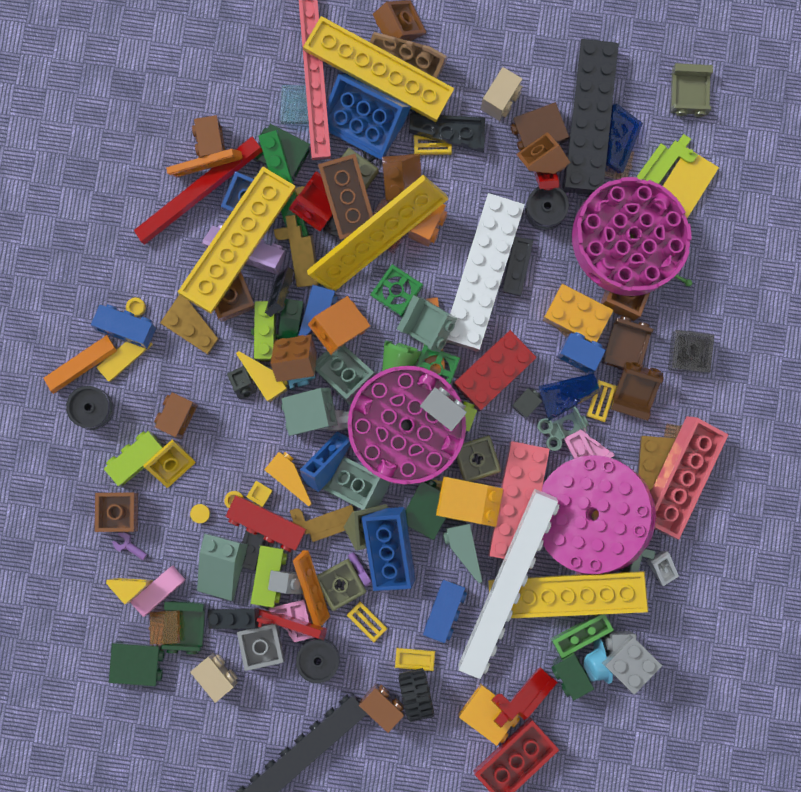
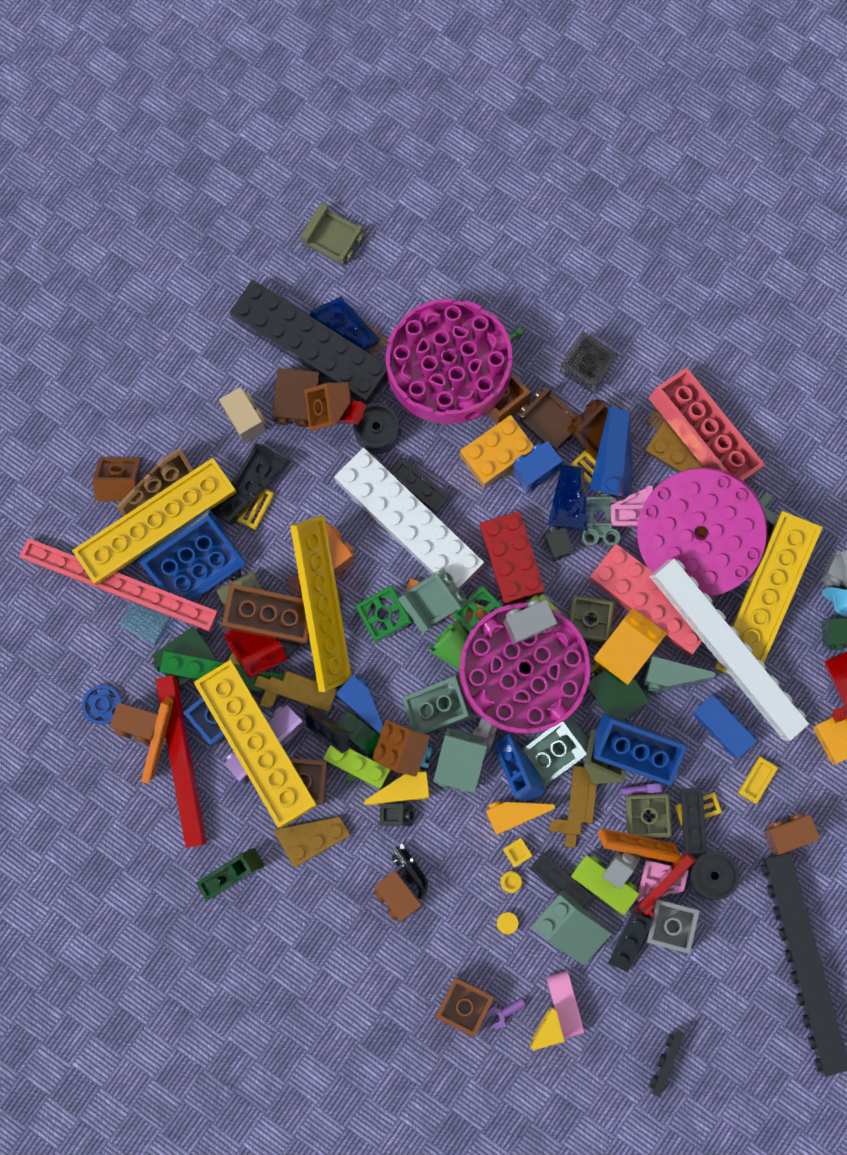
camera: 55 degrees left, 5 degrees down
(80, 364) = (294, 970): orange tile -> none
(80, 401) = (334, 989): black wheel -> none
(120, 360) = (308, 920): yellow tile -> none
(123, 326) = (278, 905): blue brick -> none
(130, 275) = (230, 874): none -> dark green slope
(133, 458) = (418, 962): lime brick -> none
(136, 306) = (264, 884): yellow tile -> none
(136, 664) = (628, 1064): dark green panel -> none
(152, 693) = (666, 1062): none -> black plate
(164, 627) = (605, 1016): clear orange piece -> none
(169, 463) = (442, 928): yellow slope -> none
(192, 626) = (614, 996): dark green panel -> none
(200, 419) = (413, 874): none -> black piece
(213, 105) = (100, 704): none -> blue wheel
(214, 677) = (680, 988): tan brick -> none
(266, 523) = (552, 858): red brick -> none
(338, 324) = (389, 687): orange panel -> none
(354, 622) = (693, 820): none -> black plate
(400, 173) = (272, 552): dark orange slope -> none
(416, 695) = (795, 794): black tyre -> none
(581, 634) = (812, 604): bright green brick -> none
(619, 413) = (614, 460): none -> blue wedge
(663, 567) = (784, 494): white slope -> none
(664, 159) = (387, 294): lime piece -> none
(689, 181) = (418, 279): yellow tile -> none

